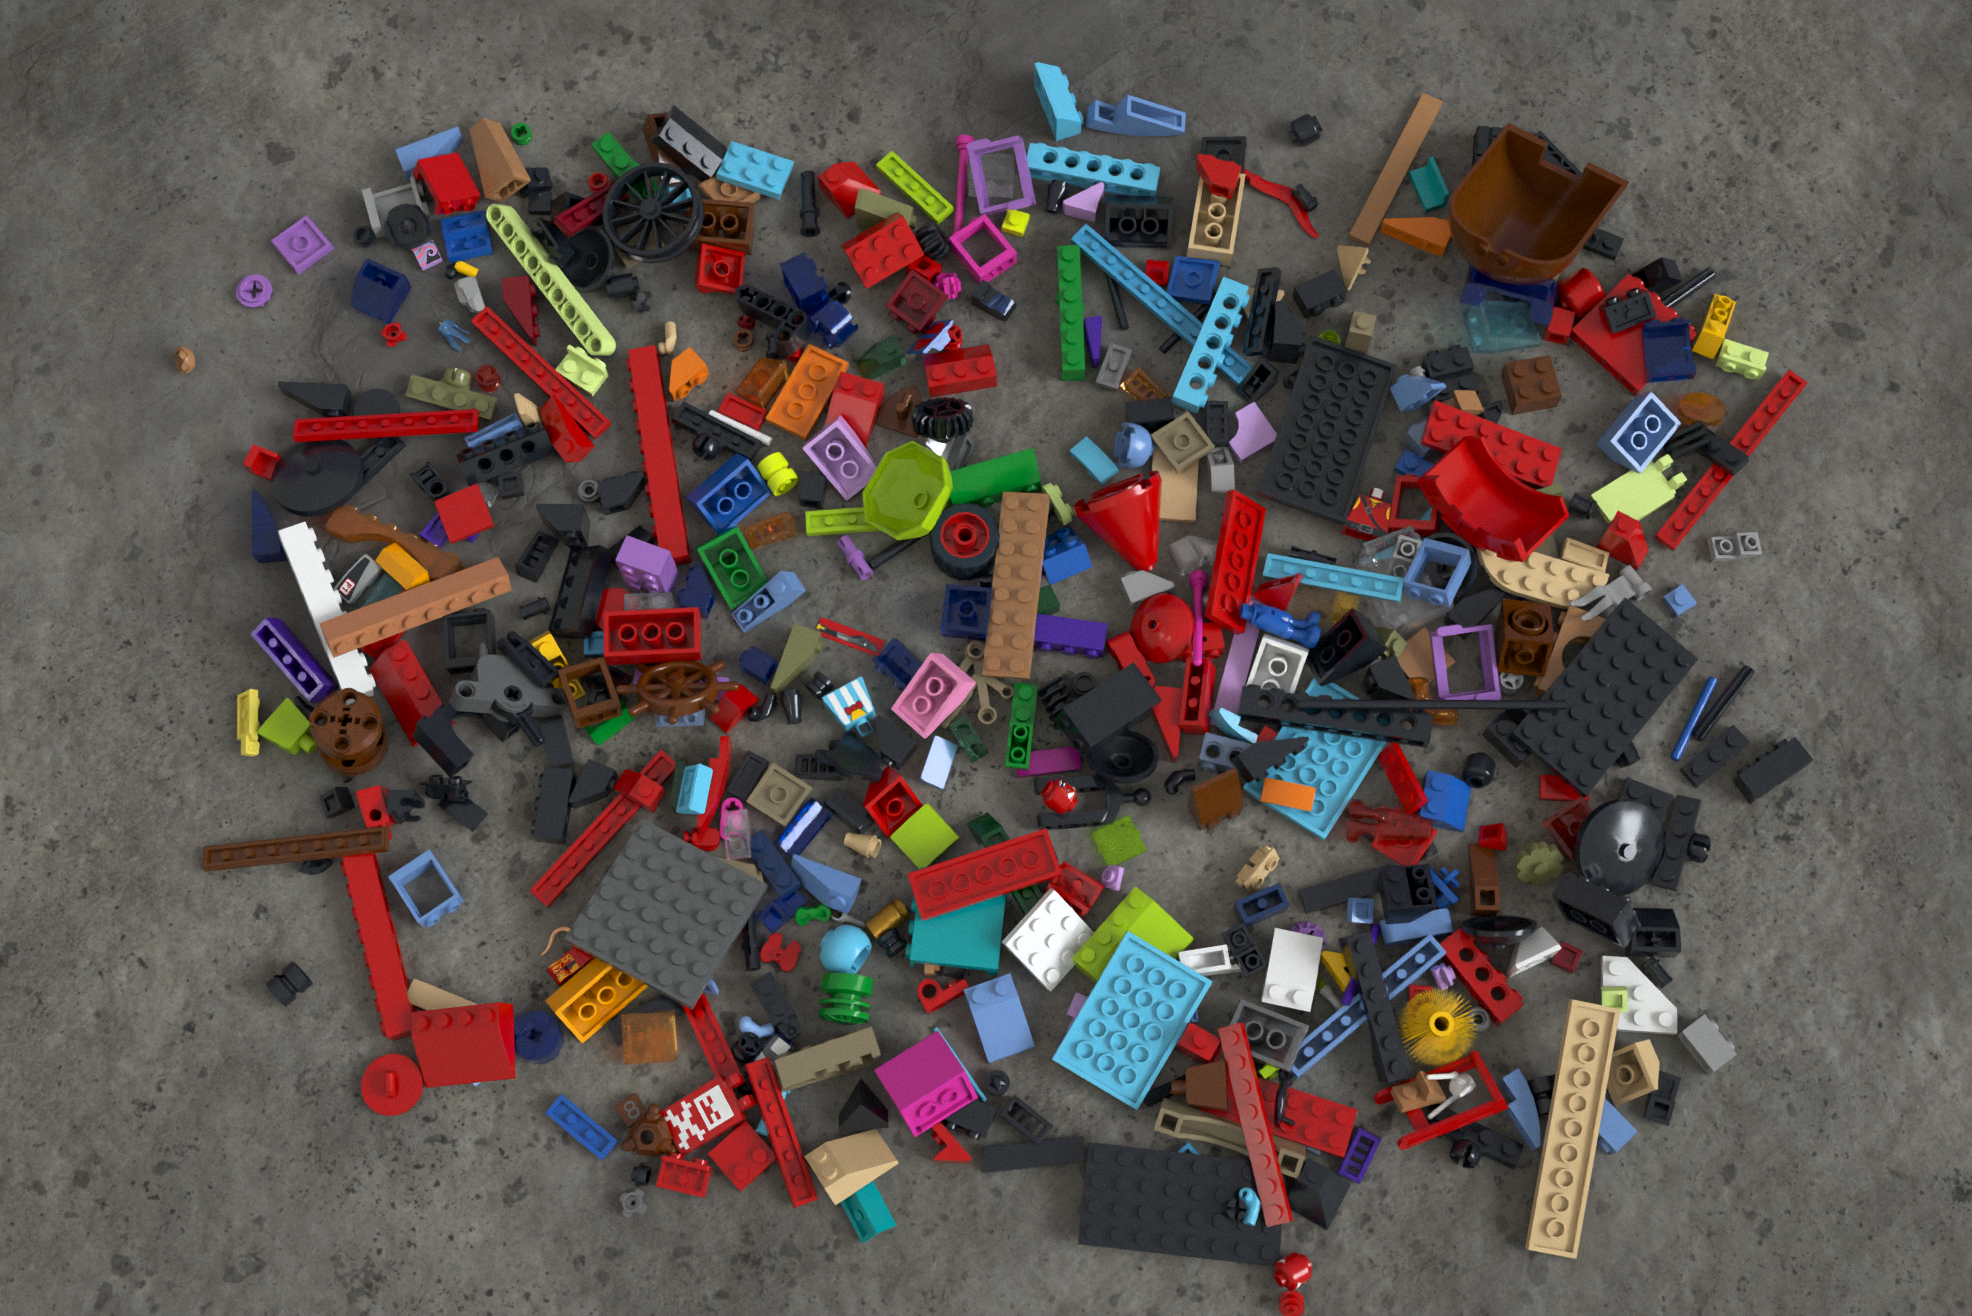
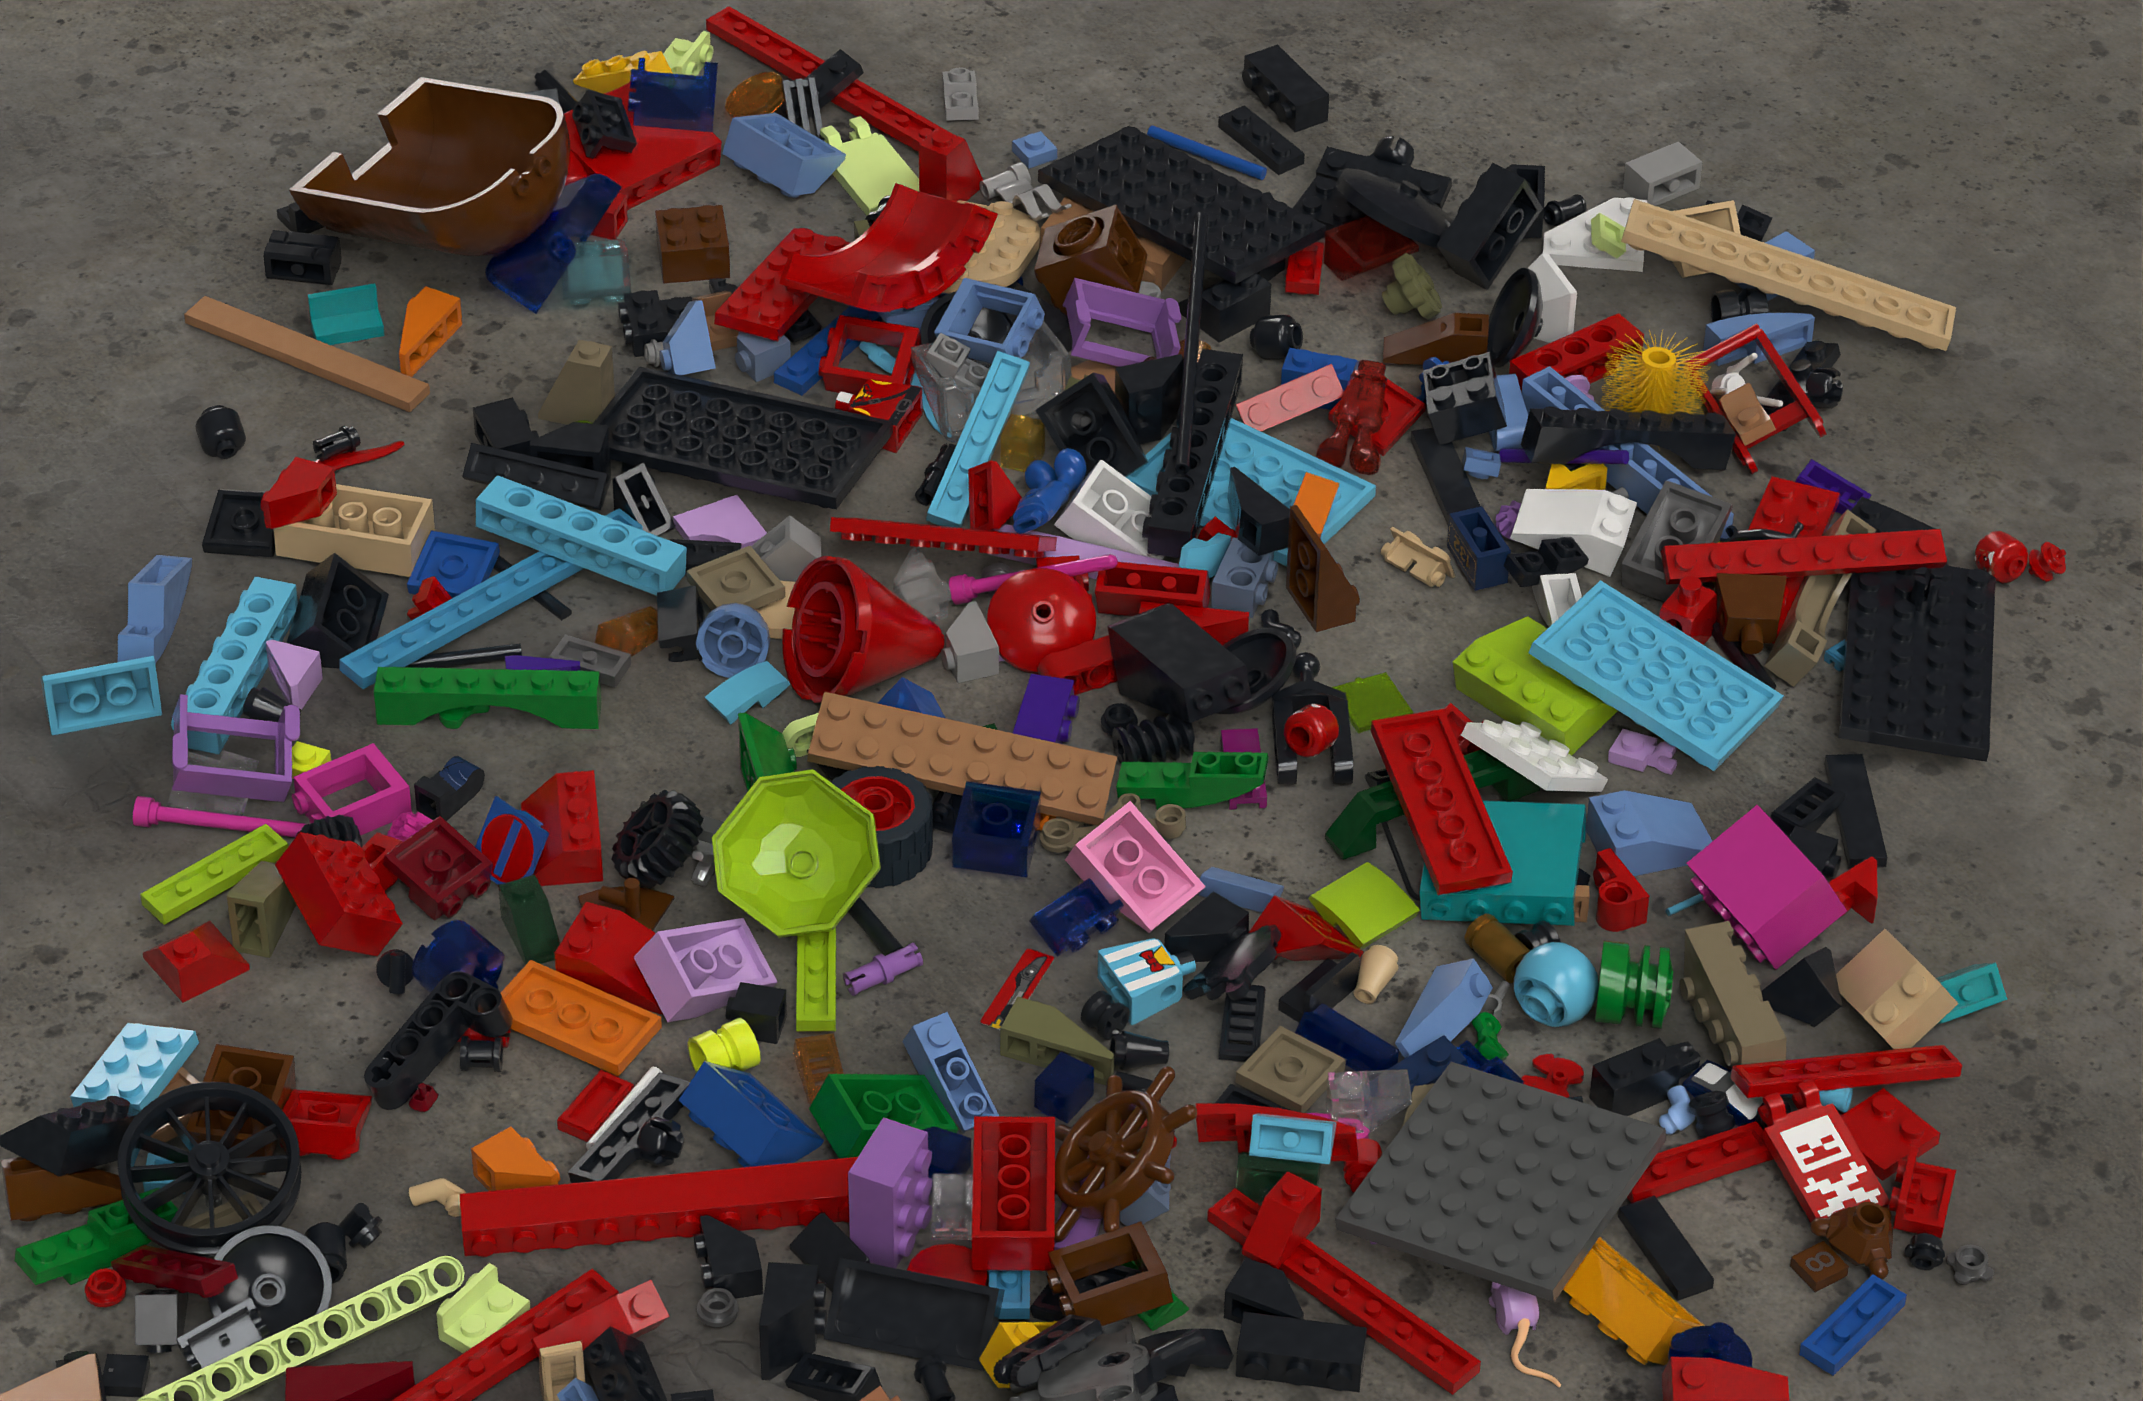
camera: 90 degrees left, 30 degrees down
(568, 965) = (1577, 1332): red leg -> none
(649, 1037) = (1702, 1232): clear orange slope -> none
(743, 333) = (465, 1100): reddish brown bush -> none
(763, 381) = (546, 1066): clear orange slope -> none
(803, 282) = (379, 995): clear blue brick -> none
(809, 212) = (233, 1004): black pin -> none
(967, 739) = (1207, 844): clear green leg -> none
(1112, 877) = (1429, 699): lavender plate -> none
(1253, 1205) = (1905, 572): medium azure arm -> none
(1351, 263) = (456, 396): tan piece -> none
(1493, 836) = (1373, 333): red slope -> none
(1723, 703) = (1185, 123): black axle -> none

